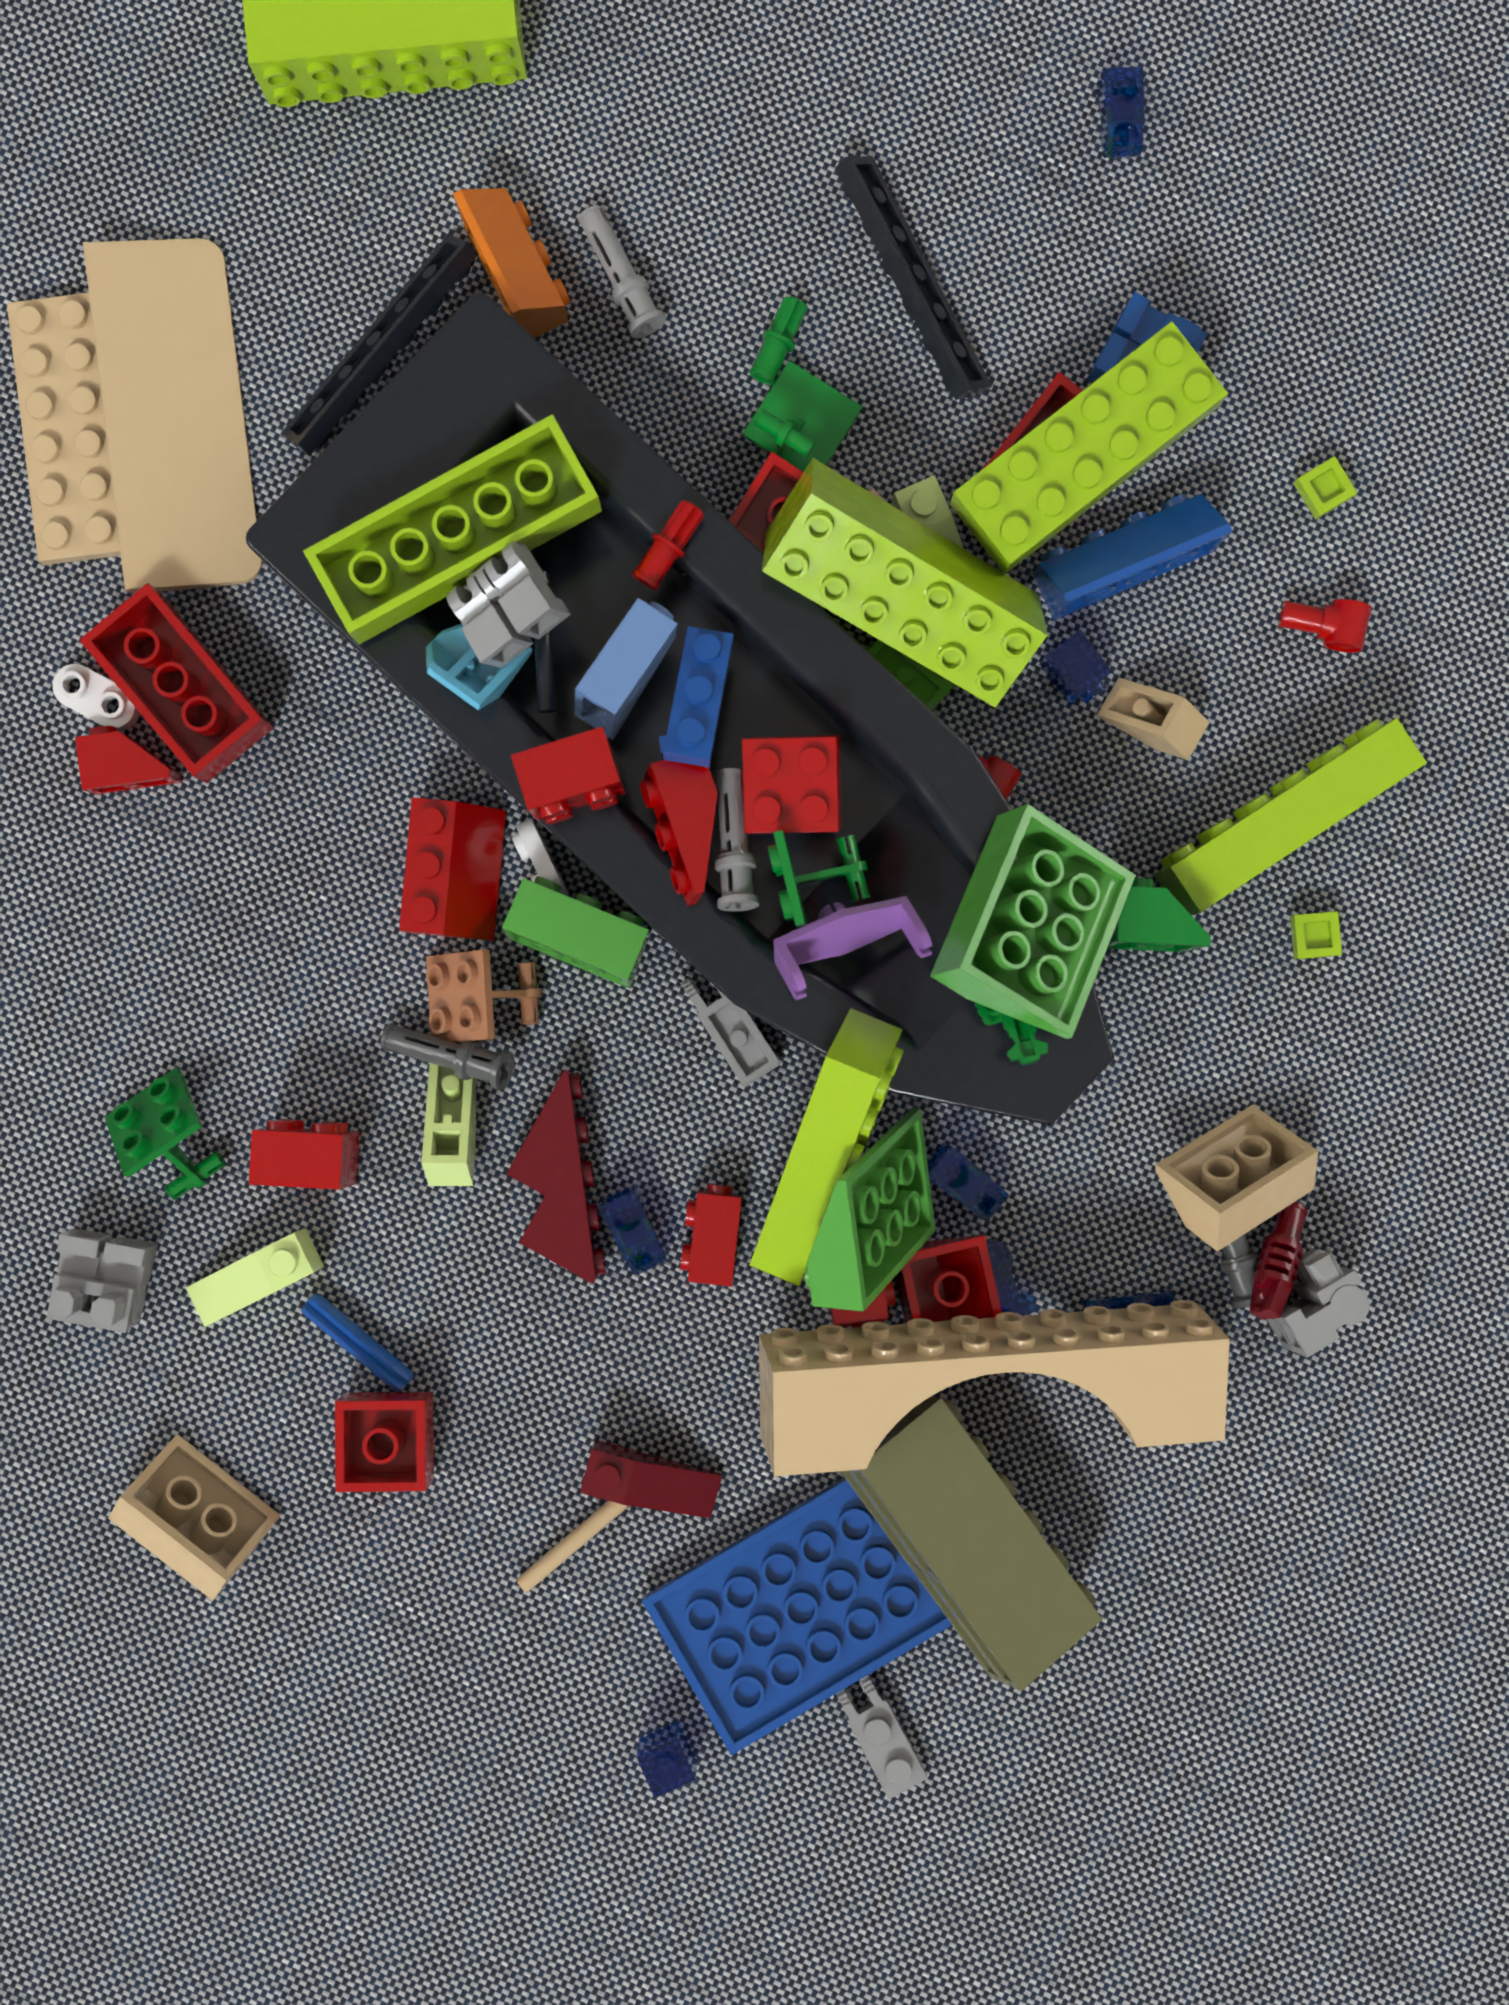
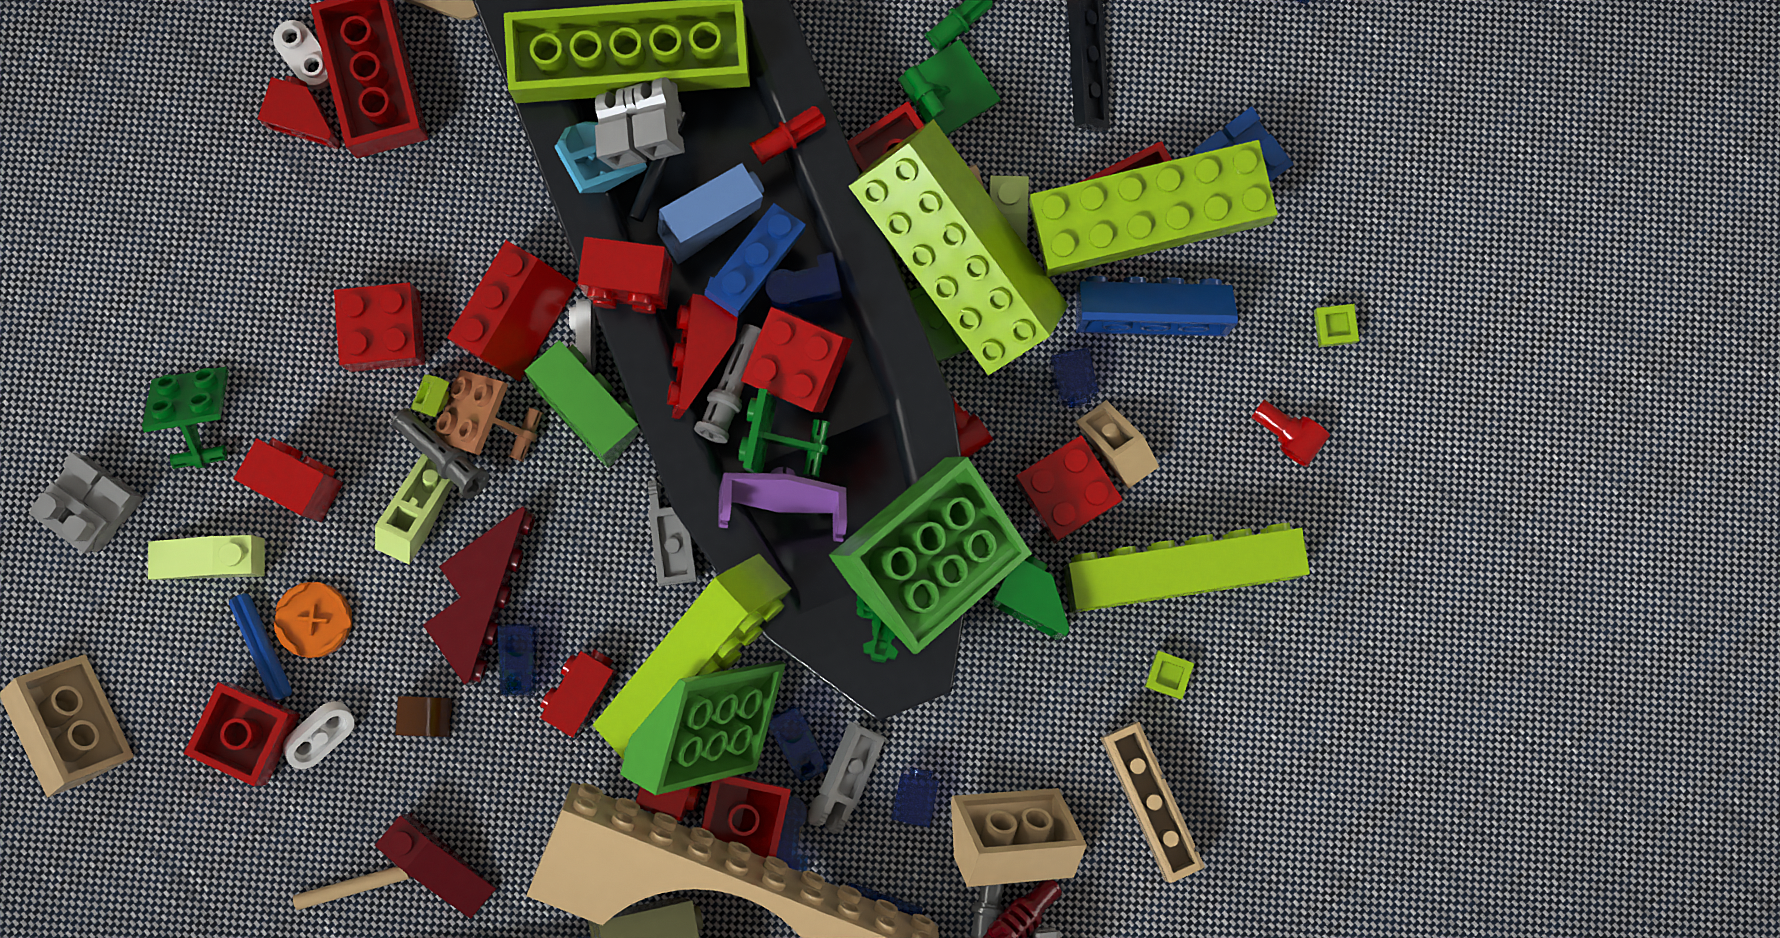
camera: 30 degrees right, 5 degrees down
(320, 951) = (379, 327): none -> red brick
(398, 1289) = (313, 620): none -> orange tile
(409, 999) = (431, 396): none -> lime plate
(463, 1405) = (319, 734): none -> white plate
(563, 1335) = (423, 716): none -> reddish brown brick
(753, 709) = (806, 286): none -> clear blue leg
(1031, 1196) = (846, 778): none -> light grey hinge
(1113, 1183) = (915, 797): none -> clear blue brick
(1125, 790) = (1067, 489): none -> red brick
(1361, 1075) = (1152, 802): none -> tan brick

